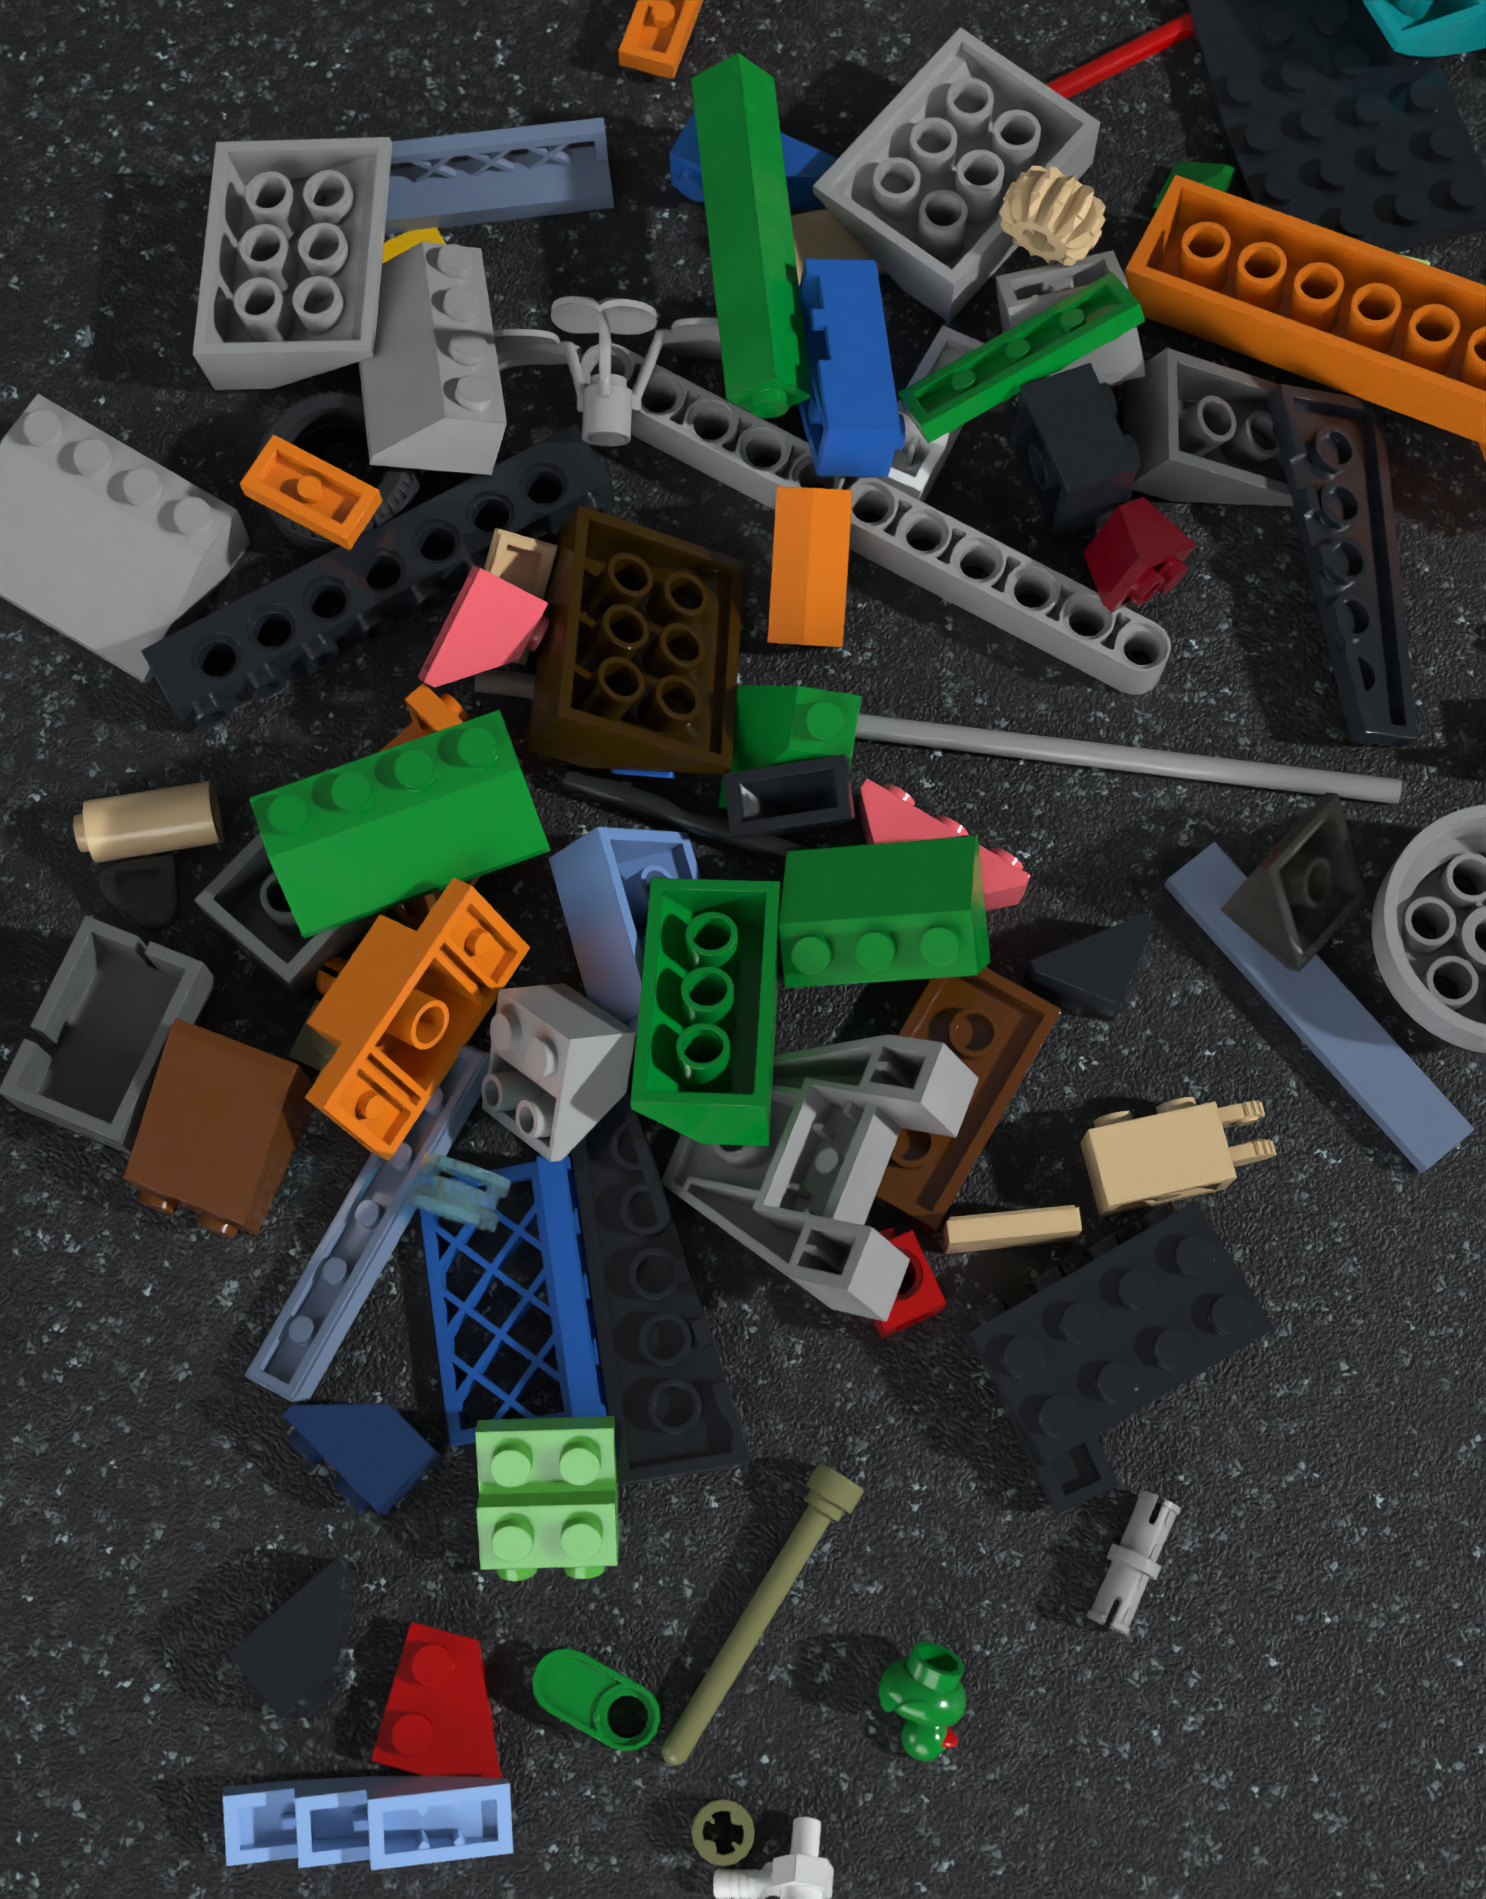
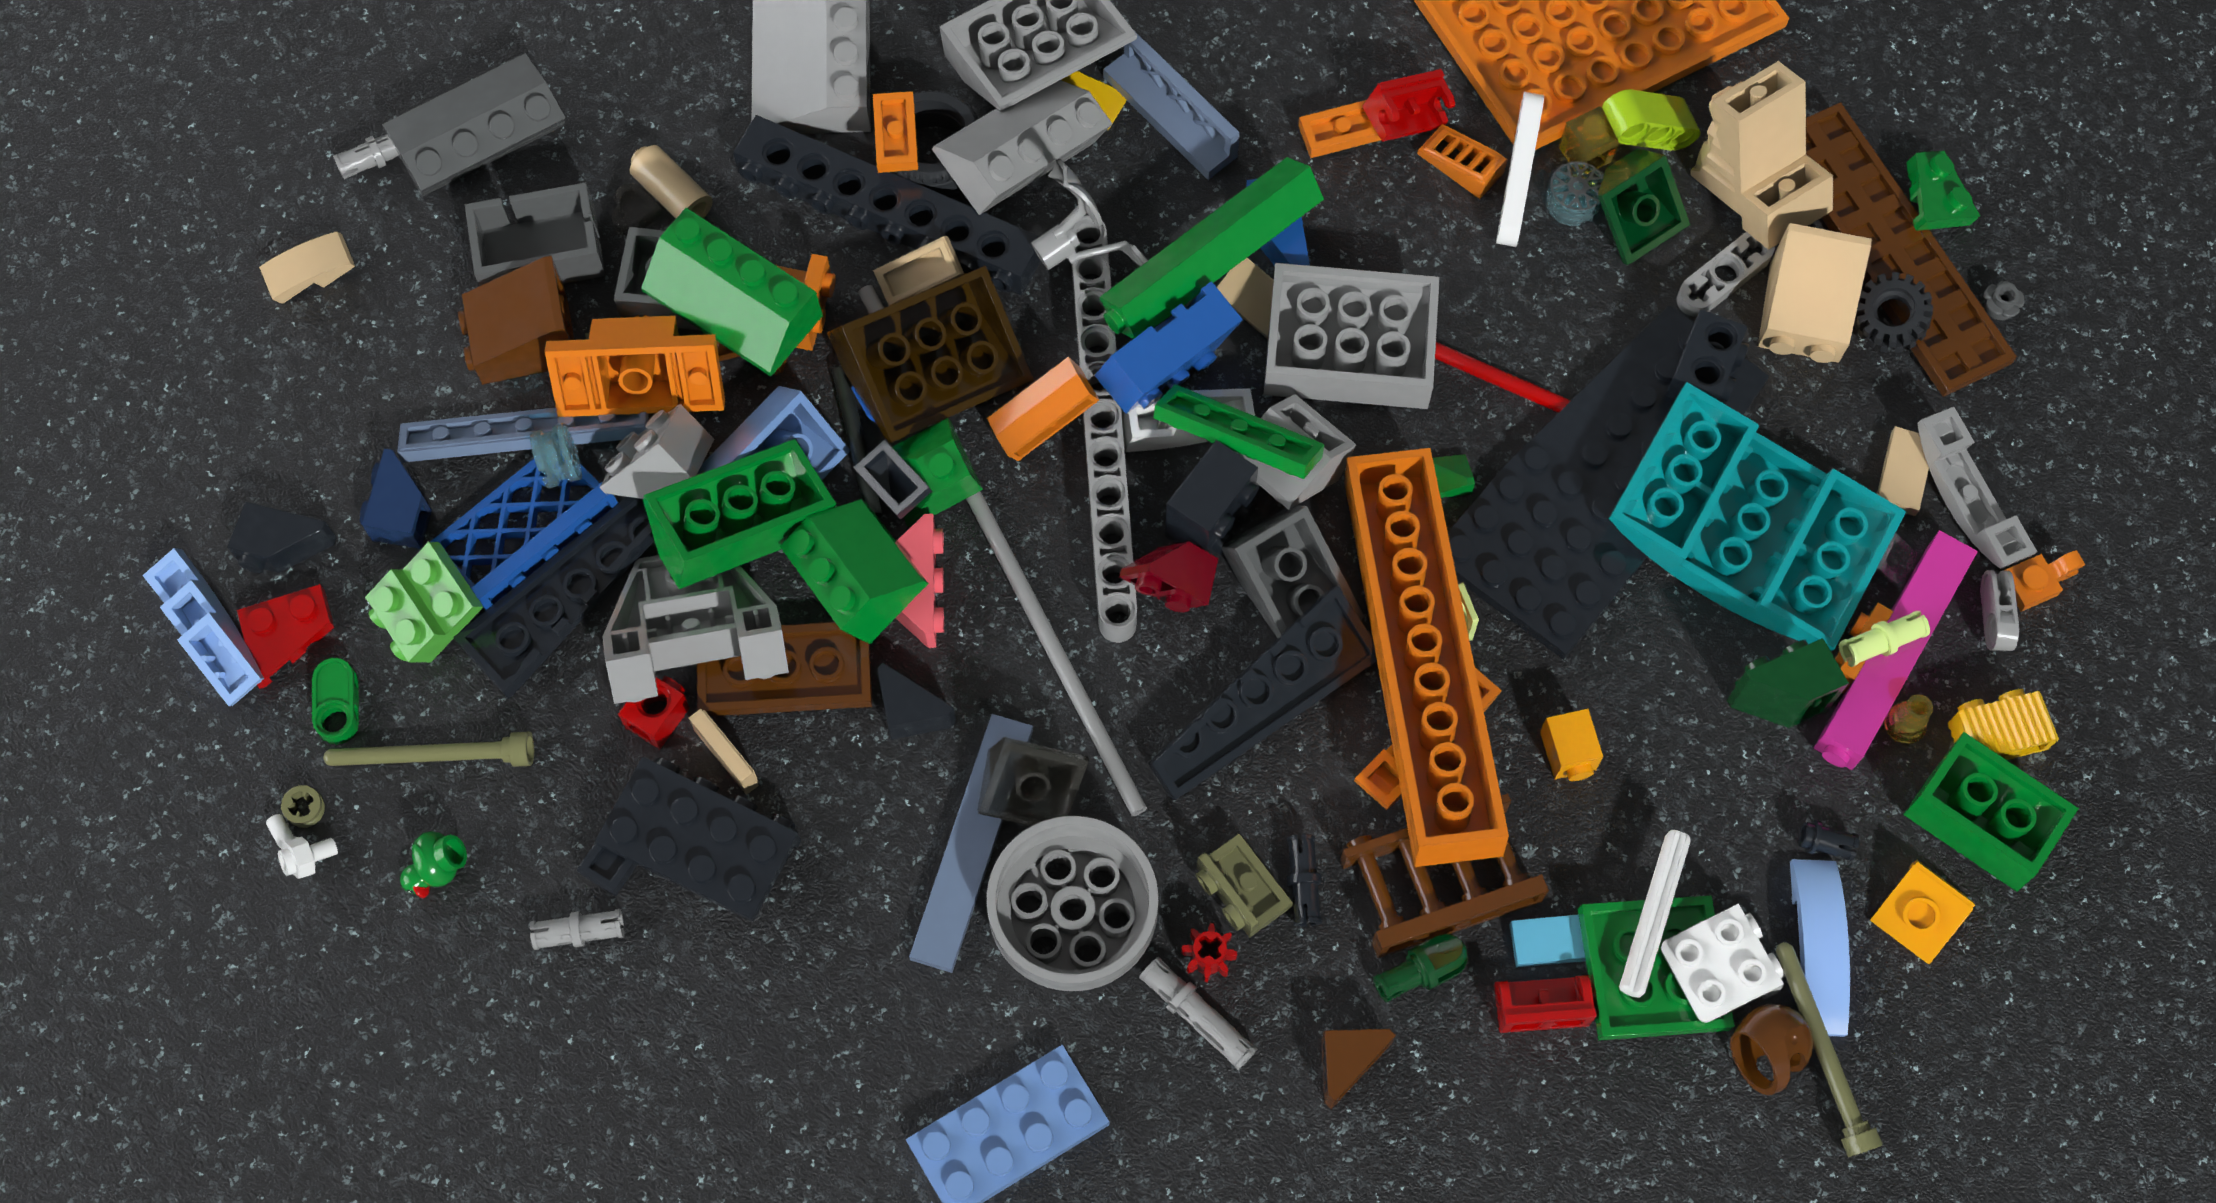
camera: 55 degrees right, 5 degrees down
(484, 629) = (883, 267): coral slope -> none
(1052, 215) = (1342, 393): tan gear -> none
(1168, 1153) = (823, 808): tan hinge -> none

